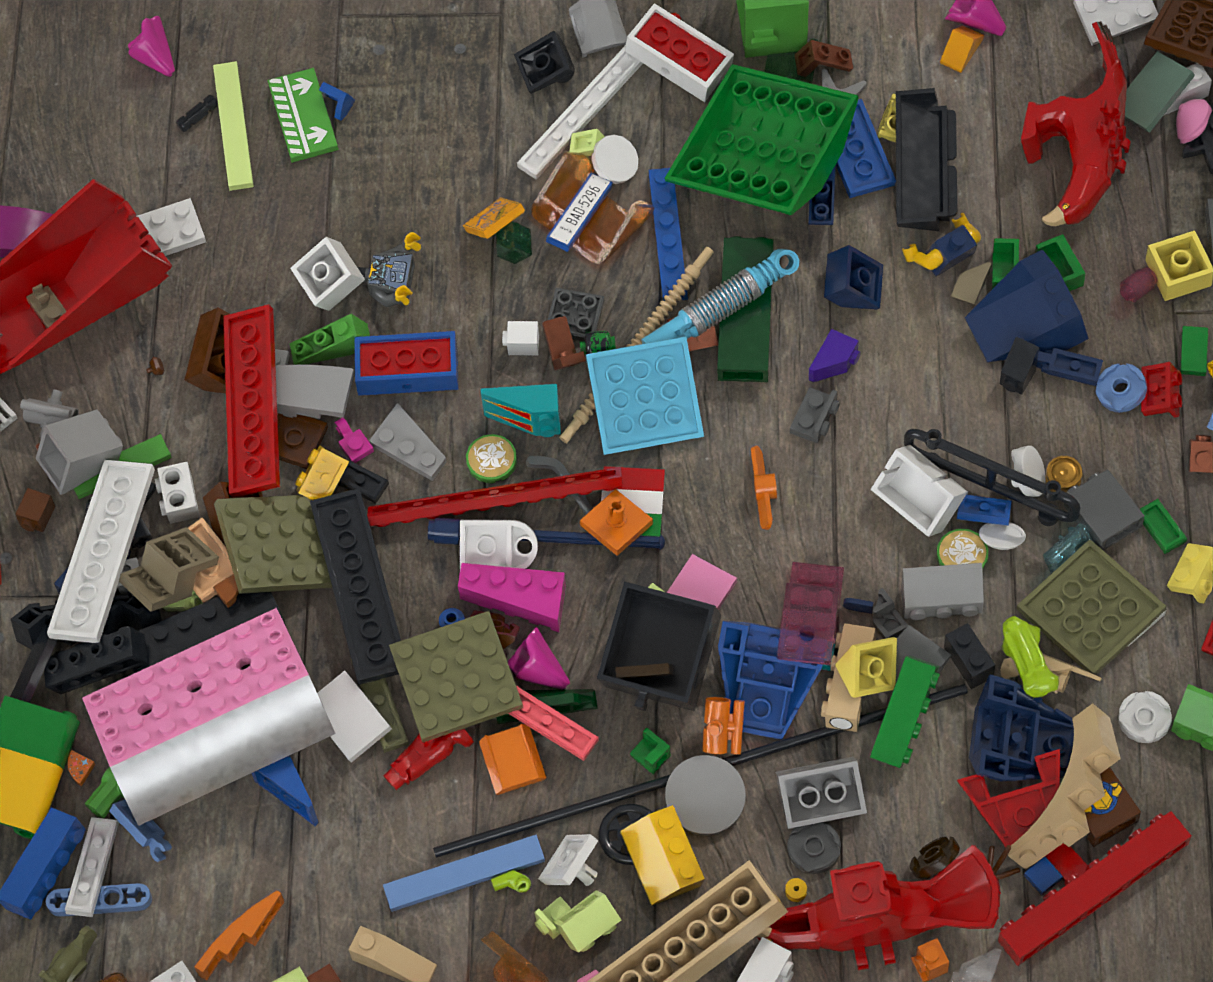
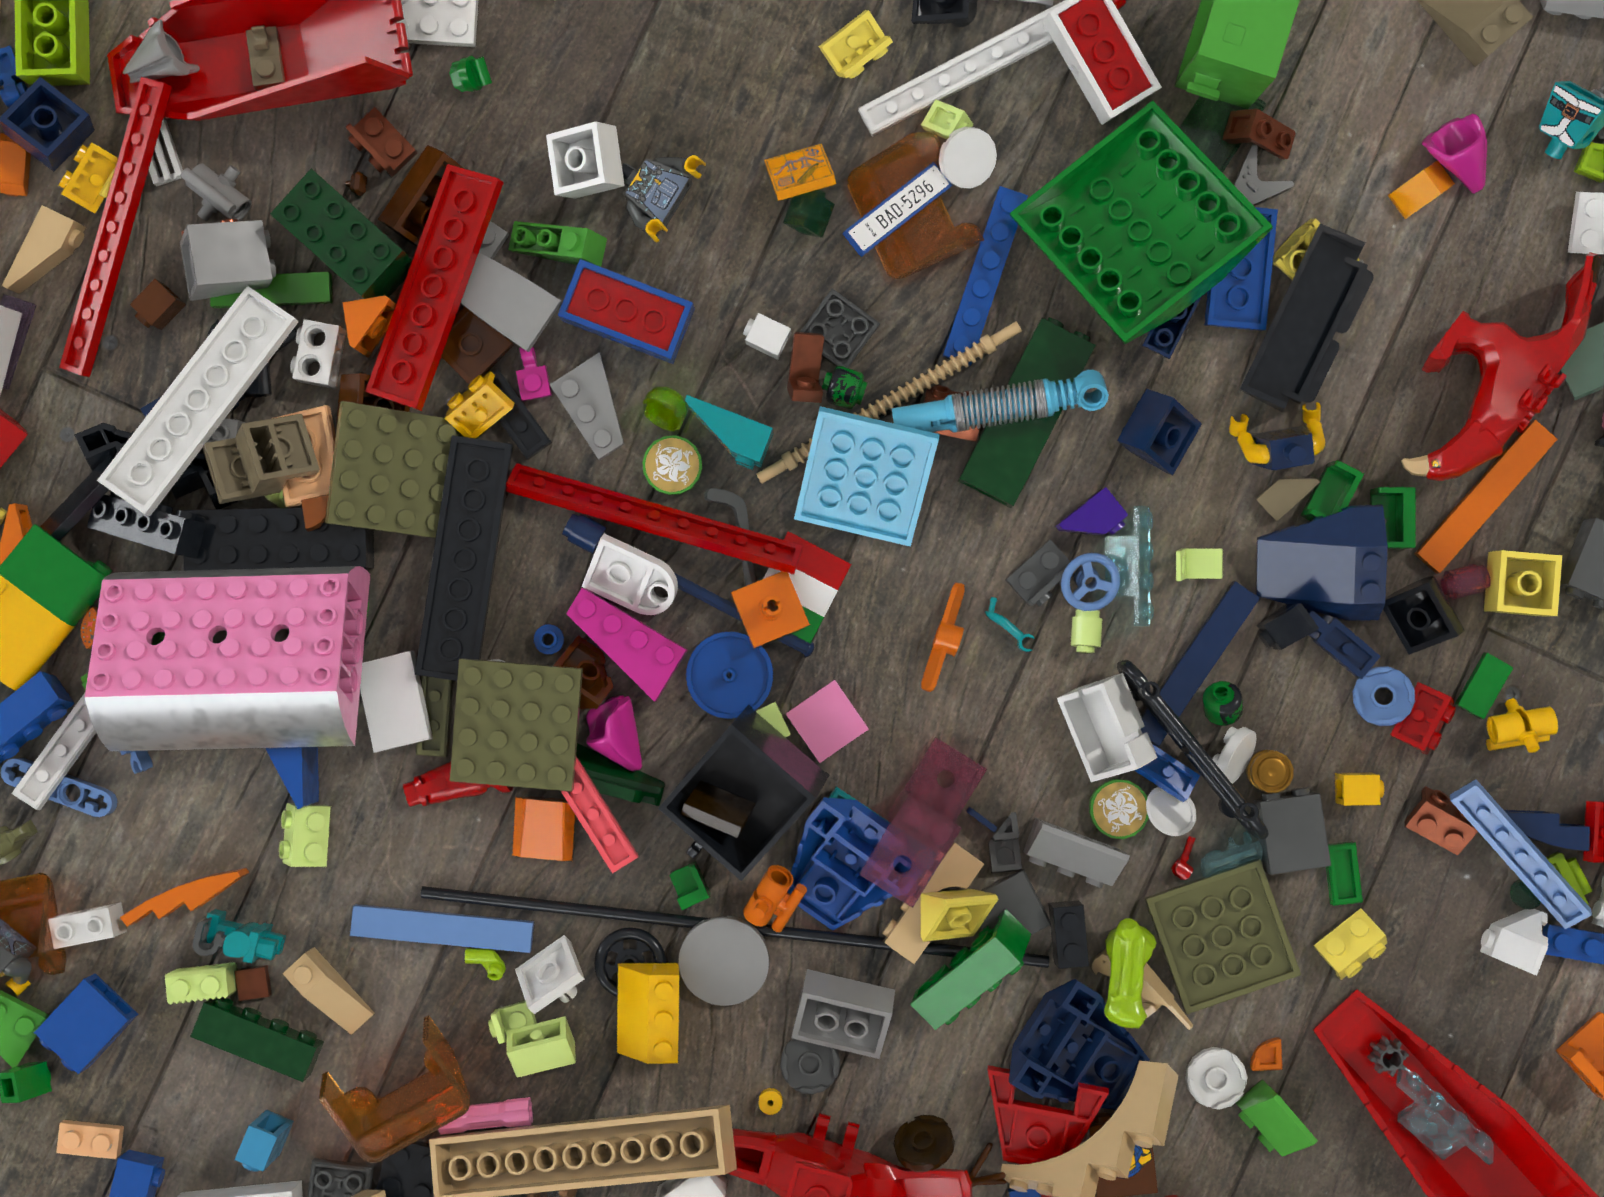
camera: 15 degrees right, 25 degrees up
(162, 331) = (381, 139): none -> copper bracket
(166, 399) = (342, 237): none -> dark green brick
(209, 447) = (367, 322): none -> orange slope
(212, 257) = (470, 74): none -> green piece
(303, 943) = (236, 939): none -> teal hips
(318, 847) = (305, 835): none -> yellowish green bracket
(467, 418) = (665, 408): none -> clear neon green hair
(494, 122) = (855, 45): none -> light yellow bracket
(599, 583) = (729, 674): none -> blue piece
(828, 472) = (1007, 625): none -> teal piece
(845, 401) = (1080, 577): none -> medium blue piece
(869, 437) = (1086, 631): none -> yellowish green brick
(878, 379) = (1133, 559): none -> clear light blue bracket
(931, 356) = (1199, 563): none -> yellowish green bracket
(969, 413) = (1202, 655): none -> dark blue tile
(1000, 441) = (1222, 703): none -> green head
(1034, 575) = (1180, 867): none -> red hand
(1117, 317) = (1422, 615): none -> black brick
(1122, 225) = (1485, 496): none -> orange tile
(1137, 458) = (1358, 789): none -> yellow brick
(1176, 683) = (1267, 1056): none -> orange tile

